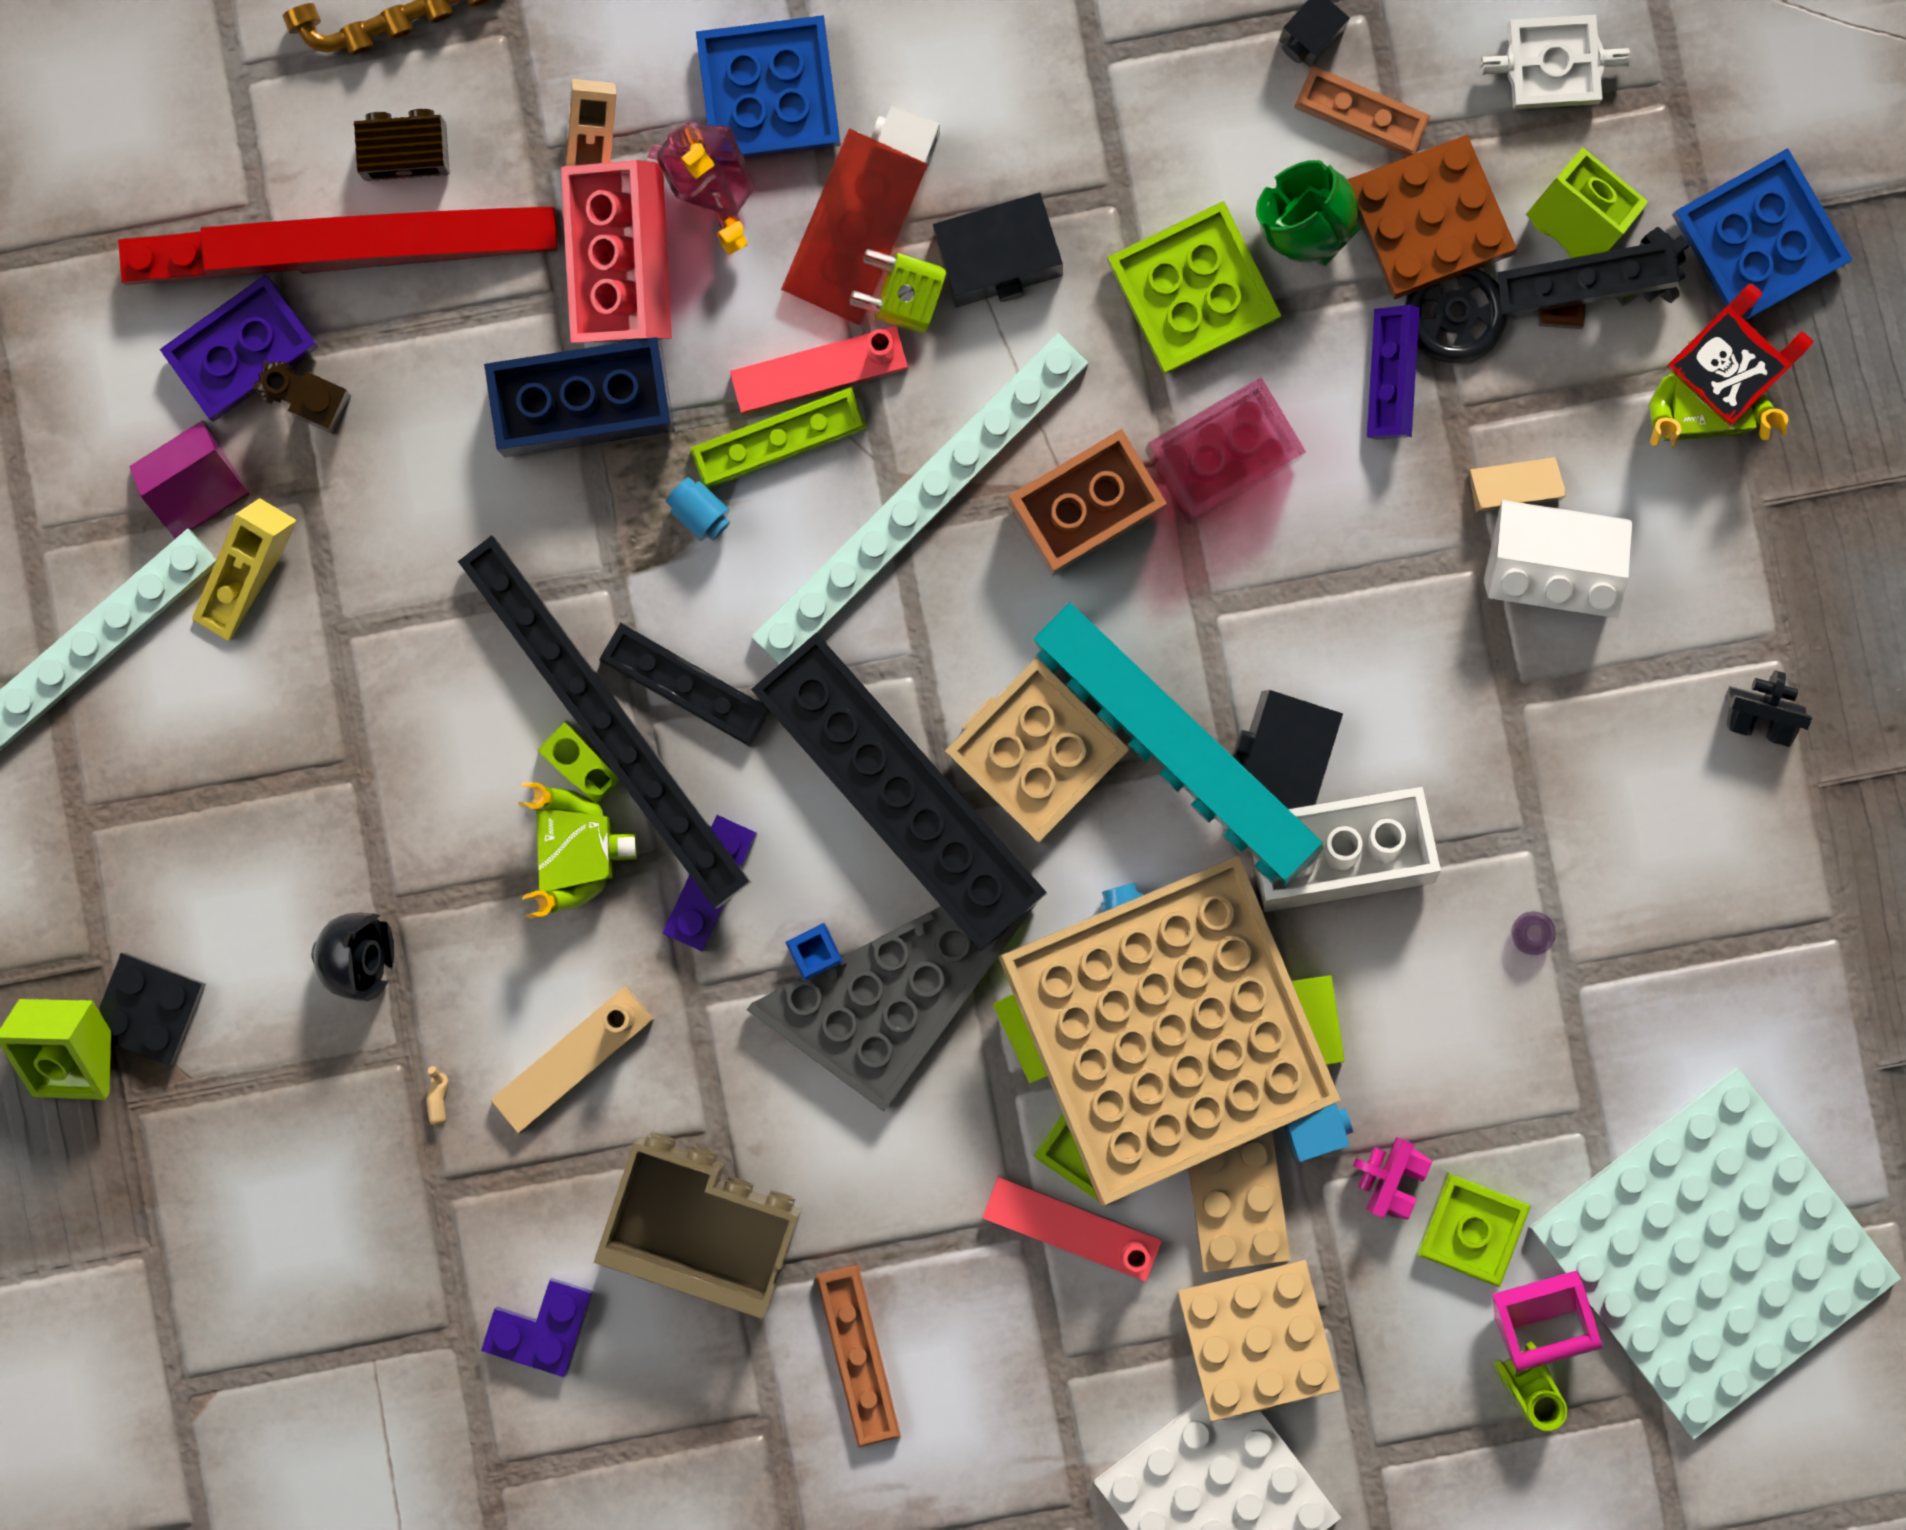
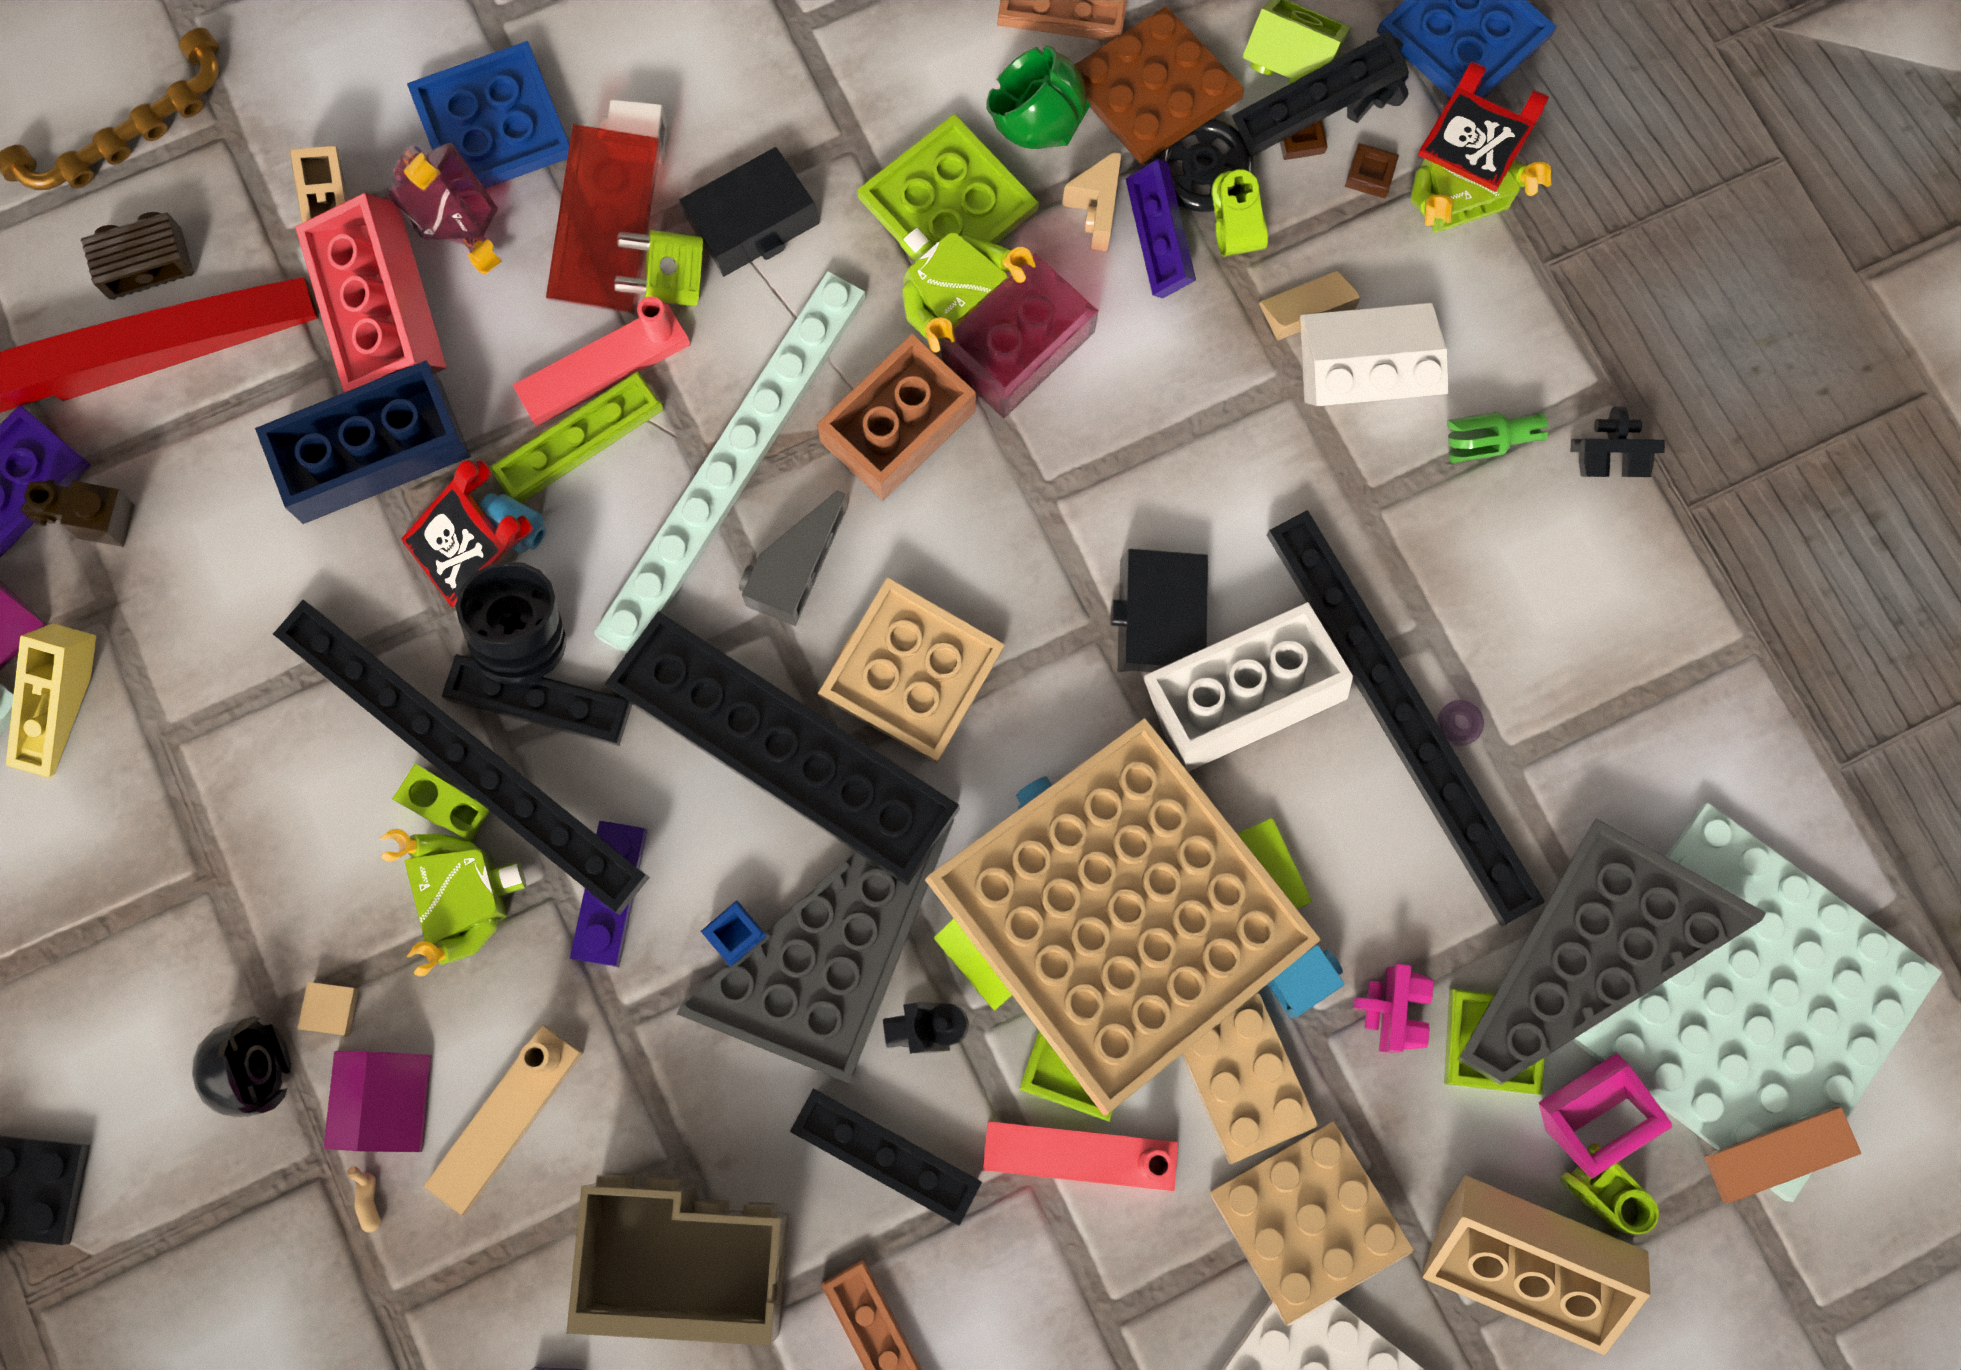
camera: 20 degrees left, 10 degrees down
(438, 920) = (328, 1009): none -> tan tile
(464, 1014) = (377, 1101): none -> magenta slope
(646, 515) = (457, 537): none -> flag
(675, 592) = (511, 622): none -> black wheel
(900, 1183) = (886, 1157): none -> black plate
(948, 622) = (791, 565): none -> dark grey slope
(965, 1083) = (926, 1027): none -> black hips
(1175, 383) = (953, 280): none -> lime torso
(1178, 744) = (1056, 624): teal brick -> none
(1345, 317) = (1097, 193): none -> tan slope
(1447, 1431) = (1538, 1265): none -> tan slope
(1472, 384) = (1238, 218): none -> lime piece
(1481, 912) = (1406, 720): none -> black plate
(1598, 1168) = (1601, 942): none -> dark grey wing
(1621, 361) = (1371, 170): none -> reddish brown tile
(1651, 665) = (1492, 434): none -> bright green arm
(1695, 1397) = (1782, 1154): none -> nougat tile

